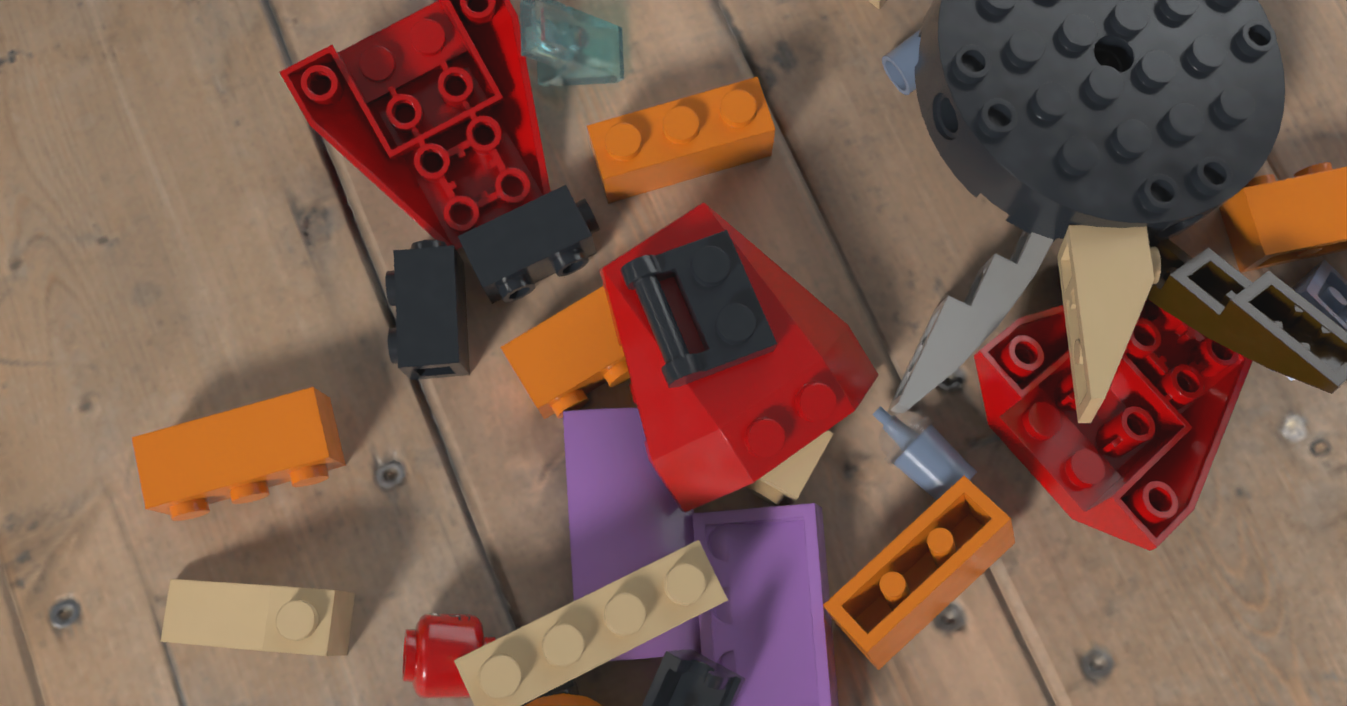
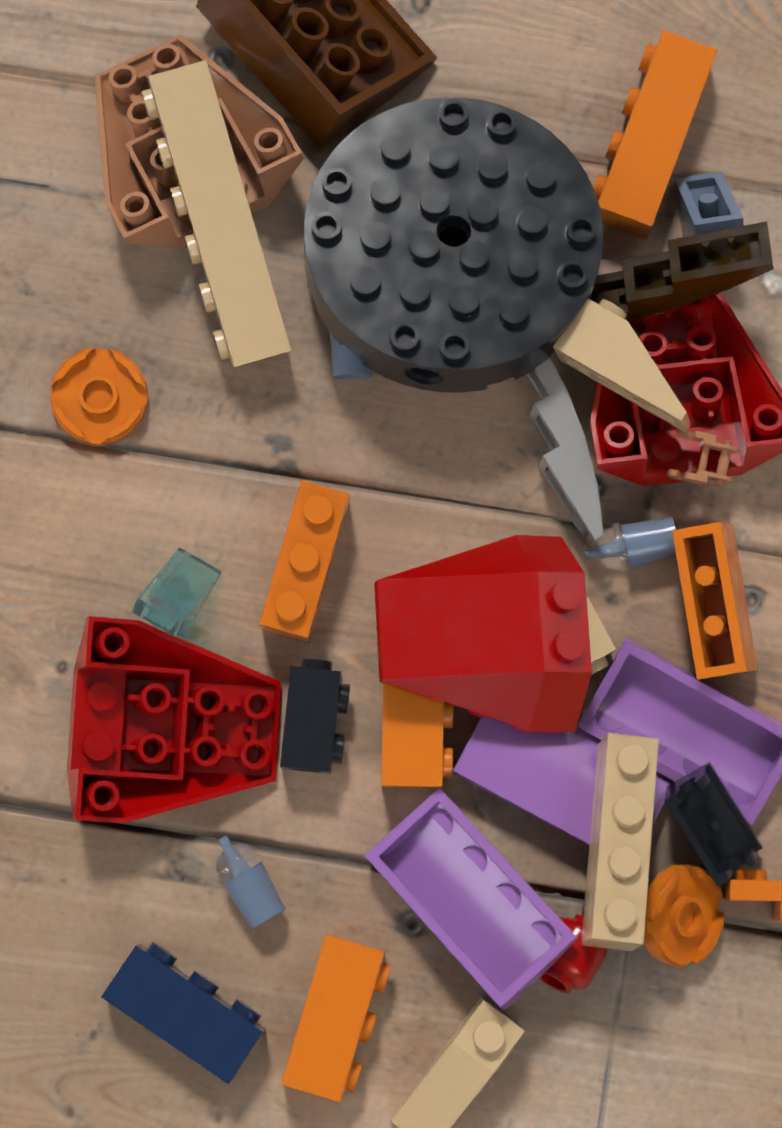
camera: 65 degrees left, 5 degrees up
(162, 304) = (184, 1010): none -> dark blue brick
(329, 285) = (247, 882): none -> sand blue piece
(429, 311) = (315, 819): black brick -> none
(434, 515) = (471, 899): none -> medium lavender slope
(717, 301) = (456, 616): black plate -> none
(1045, 471) = (707, 442): none -> nougat piece

